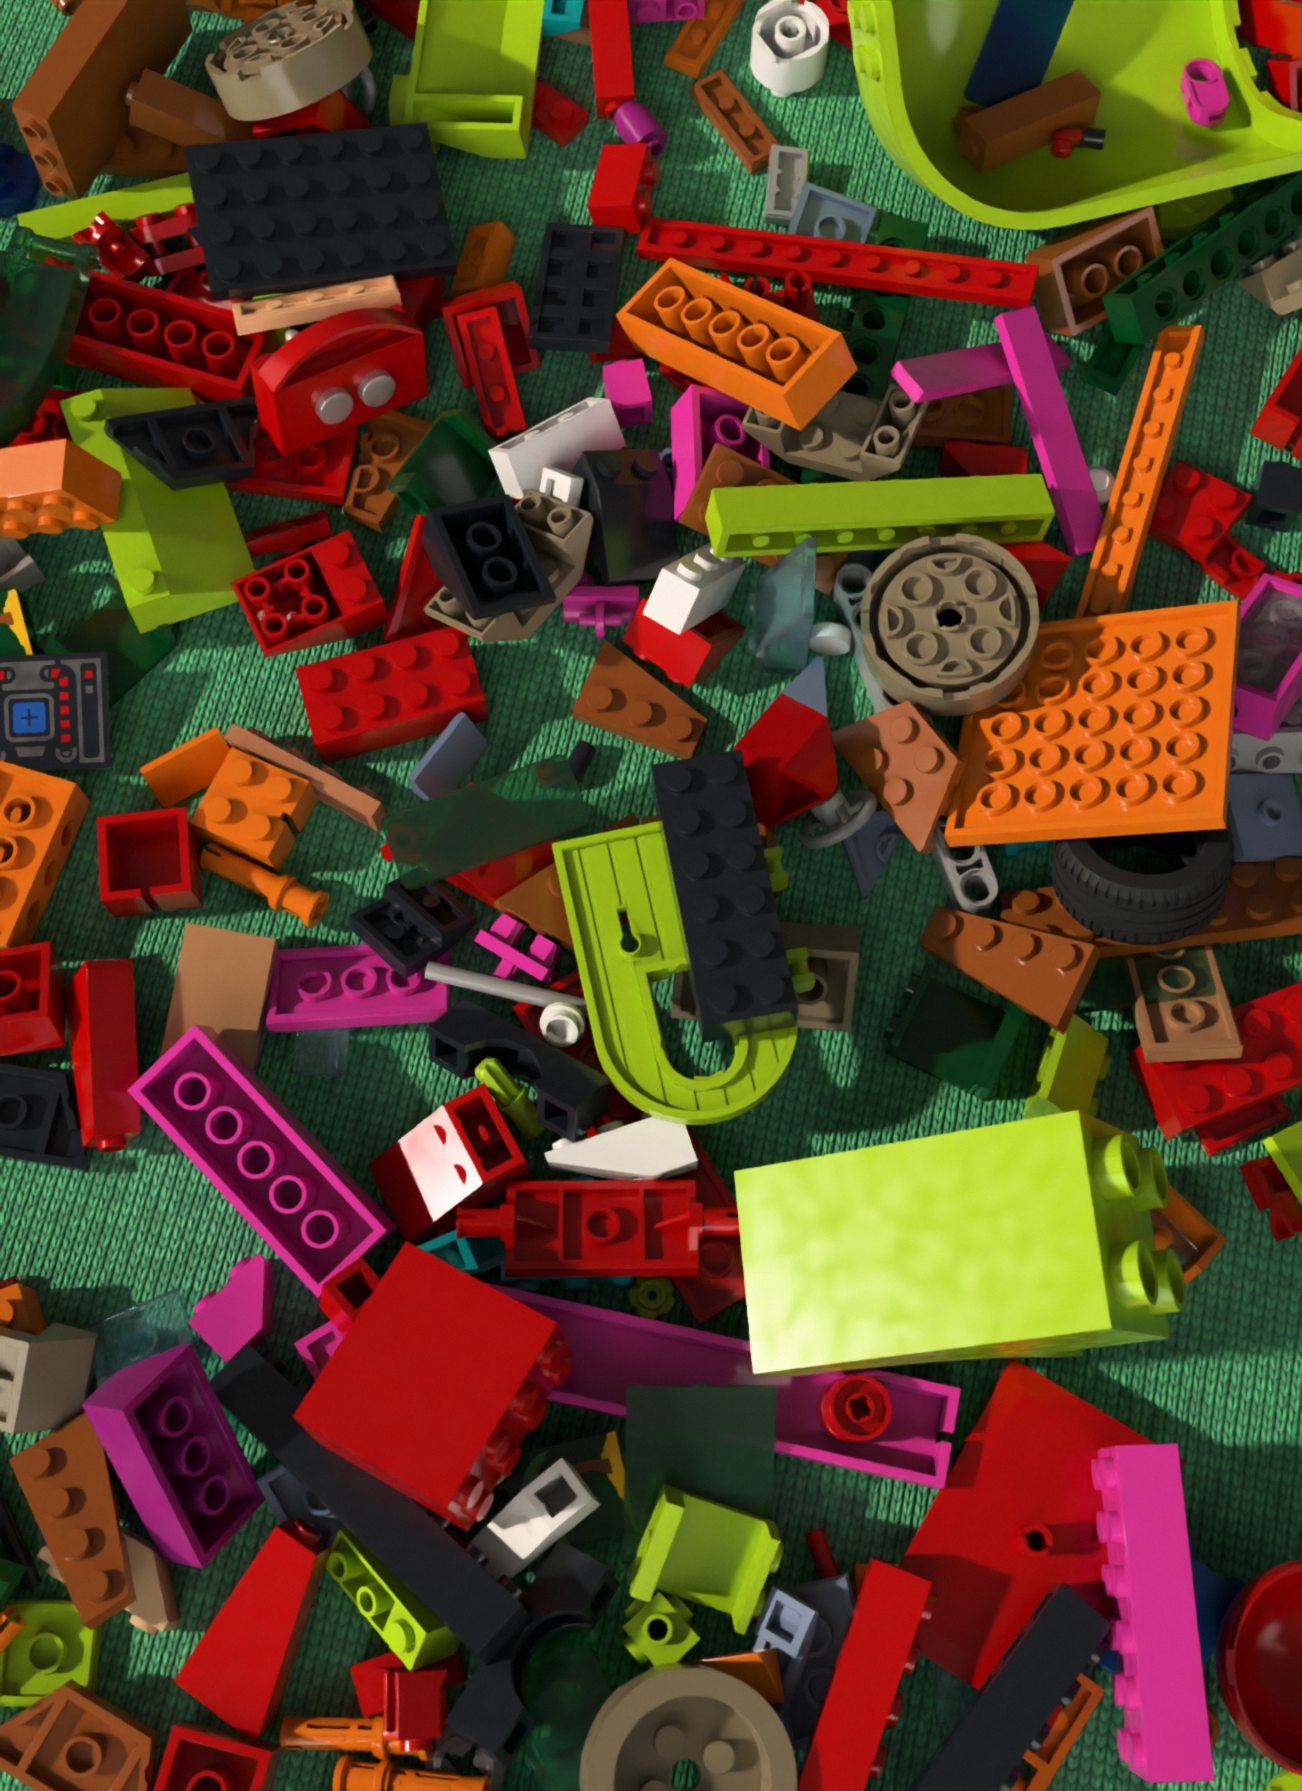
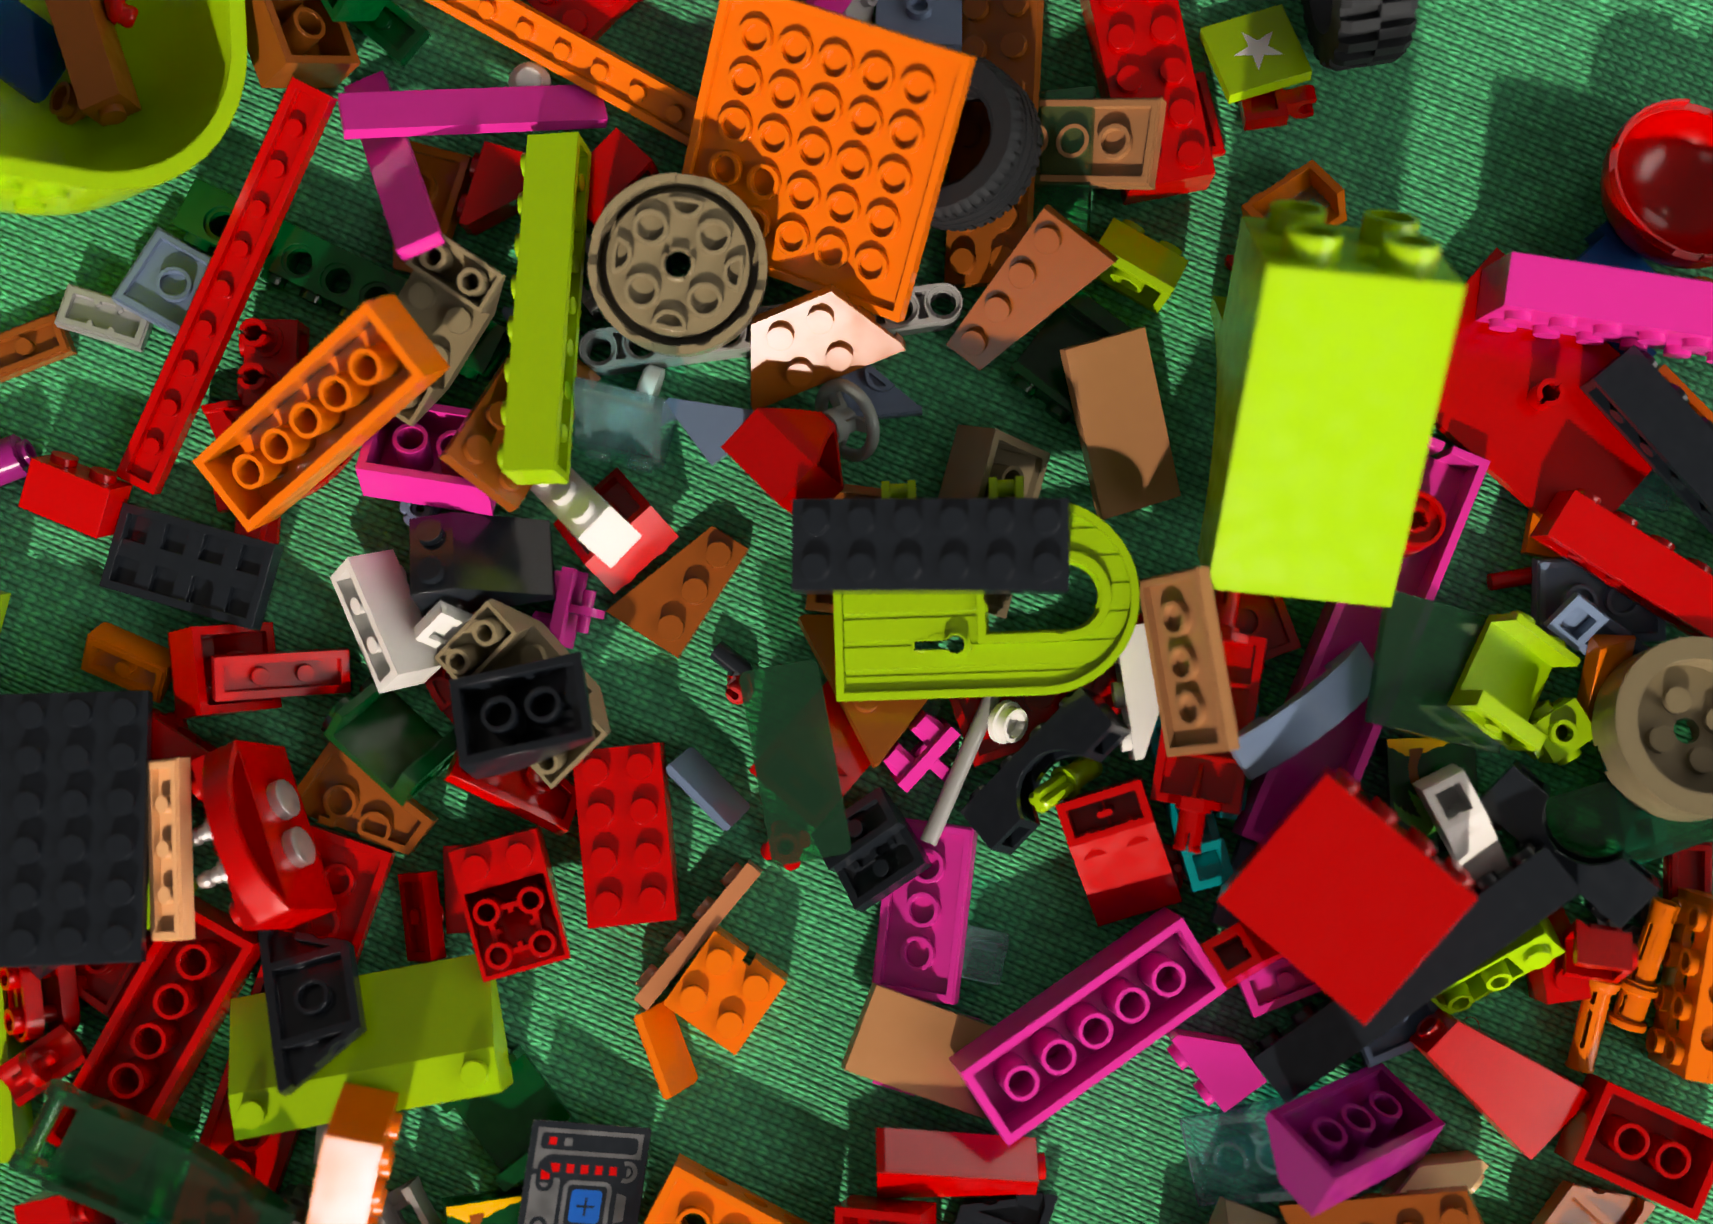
camera: 80 degrees left, 15 degrees up
(149, 862) = (764, 1100): red piece -> none
(281, 891) = (814, 973): orange pin -> none
(623, 1320) = (1307, 714): none -> sand blue slope
(628, 392) = (326, 536): dark pink brick -> none
(652, 1308) = (1276, 688): lime plate -> none
(653, 1174) = (1188, 663): none -> medium nougat tile
(897, 1083) = (1120, 422): none -> medium nougat tile

